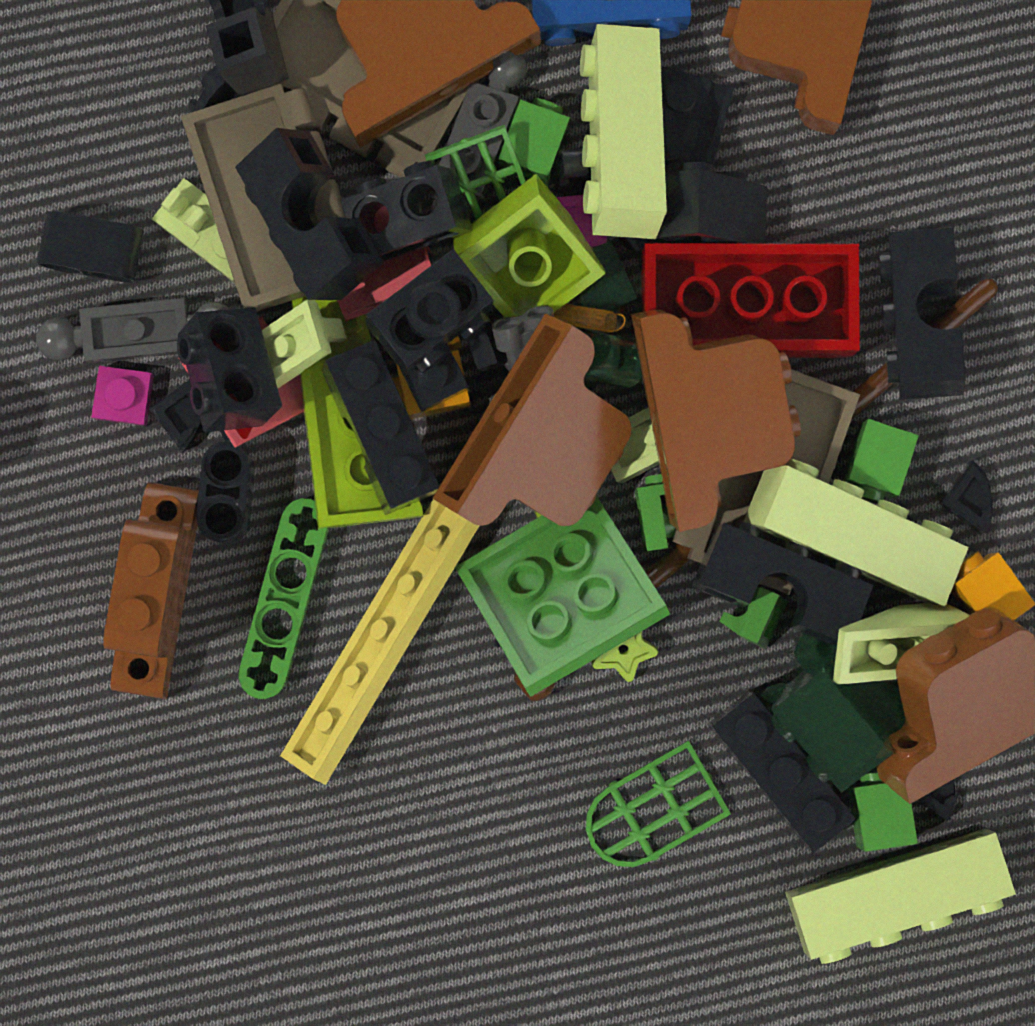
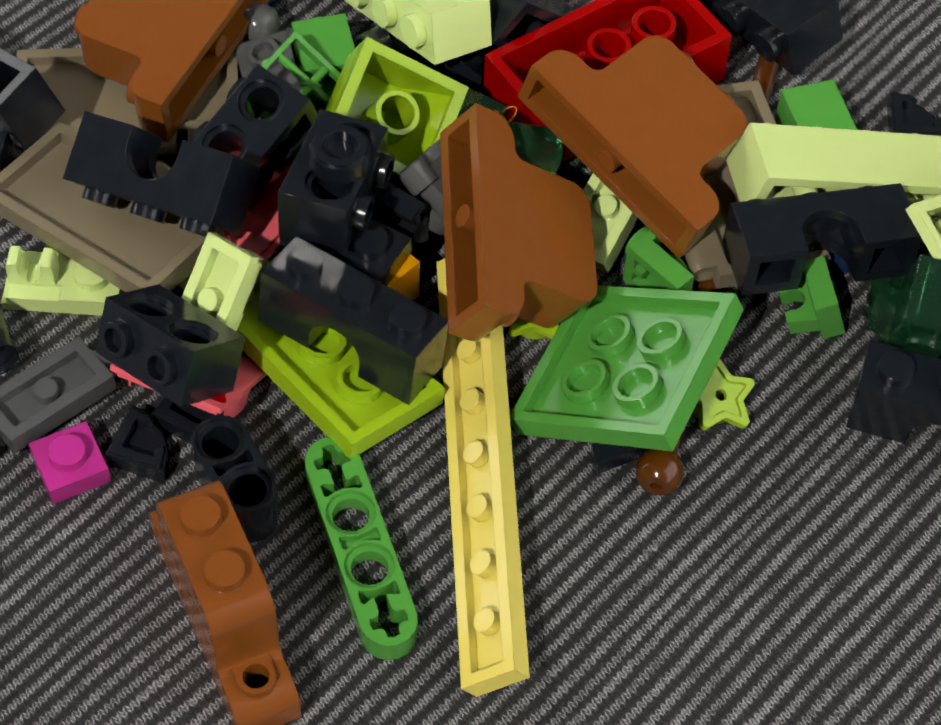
camera: 30 degrees left, 30 degrees down
(676, 811) = (882, 514): bright green window -> none

